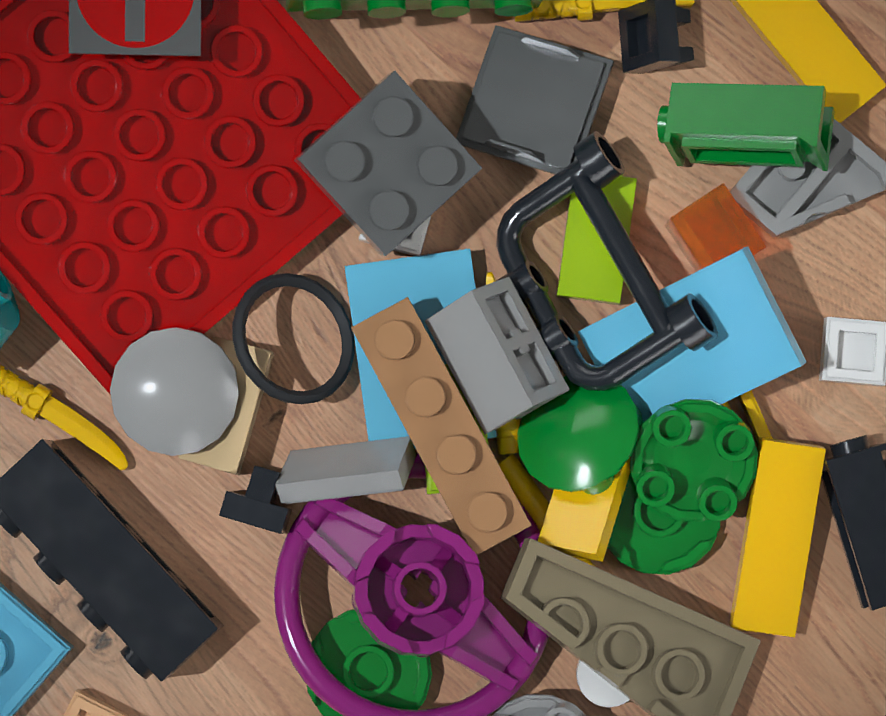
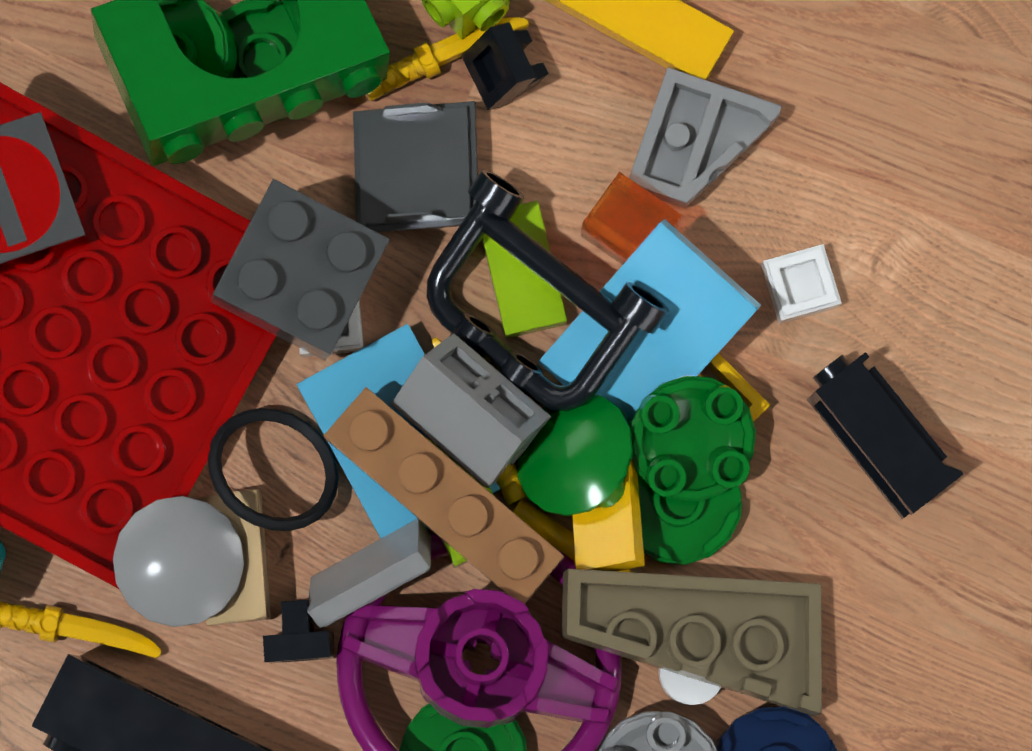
camera: 25 degrees left, 5 degrees down
(747, 124) = (620, 110): green window -> none
(777, 537) = (798, 482): yellow tile -> none

